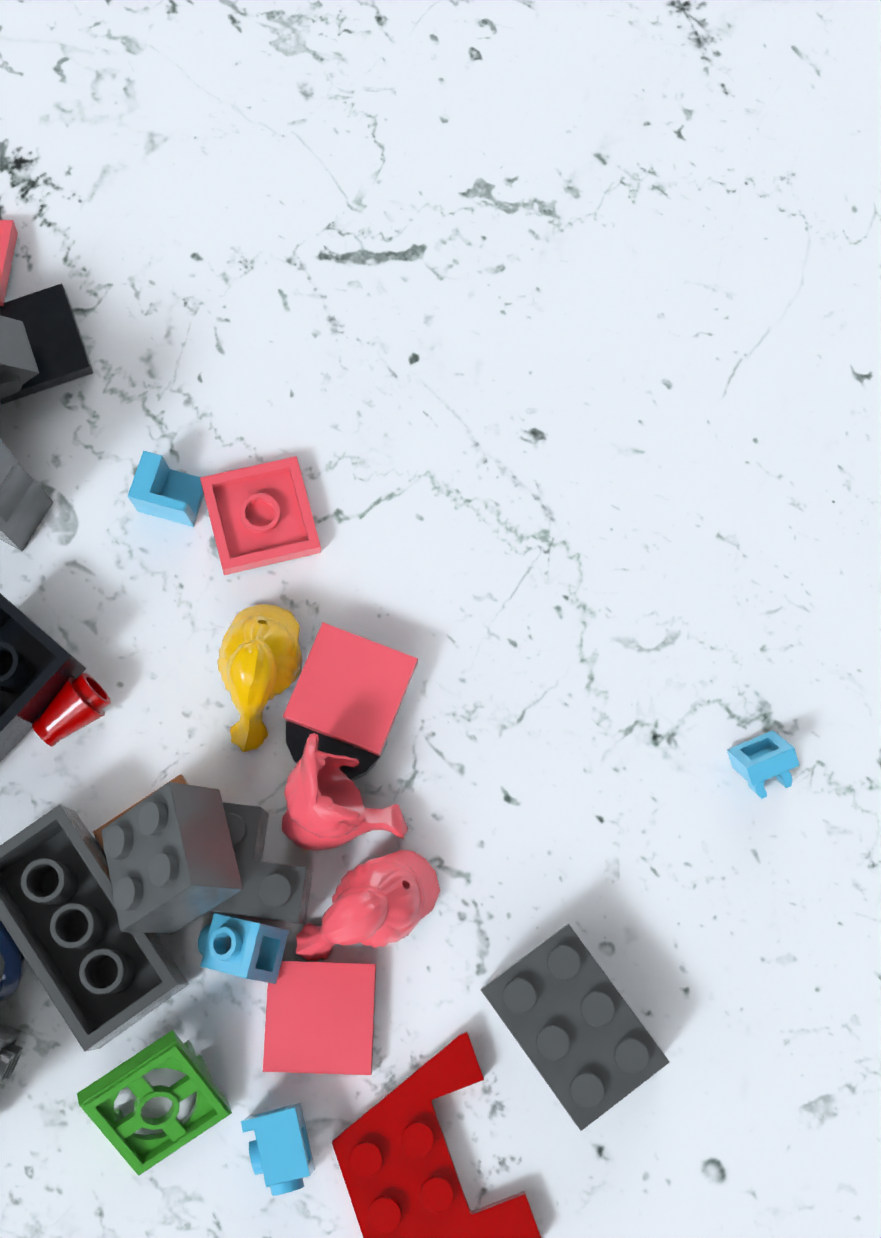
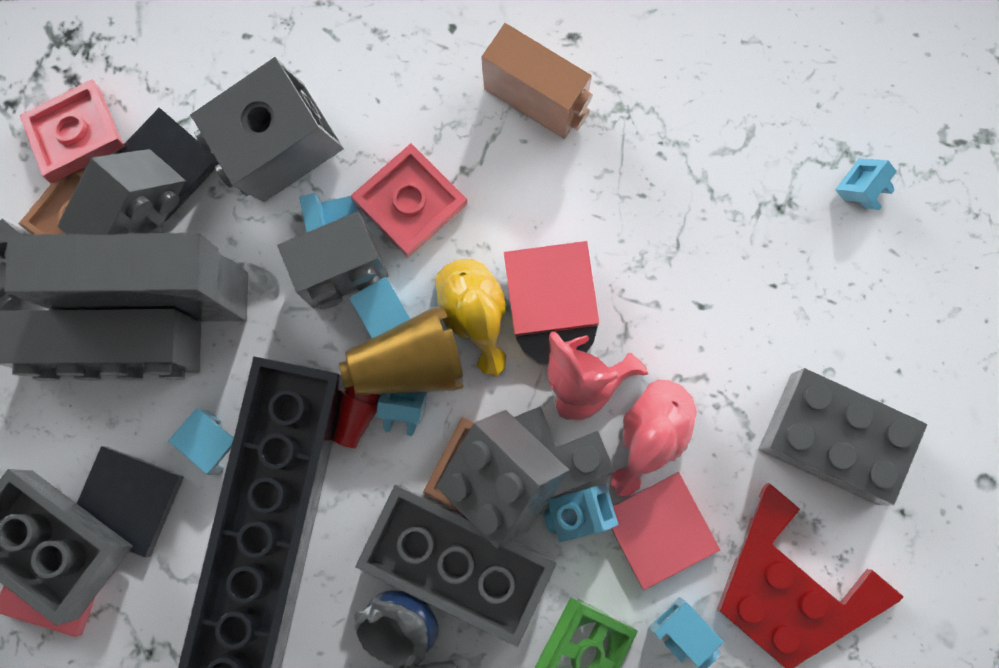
camera: 25 degrees left, 5 degrees up
(124, 727) = (401, 407): none -> medium azure tile
(138, 537) = (333, 261): none -> dark grey brick
(148, 366) = (265, 132): none -> dark grey brick
(150, 678) = (406, 359): none -> pearl gold cone
(161, 614) = (379, 307): none -> medium azure panel
(459, 460) = (536, 81): none -> nougat brick

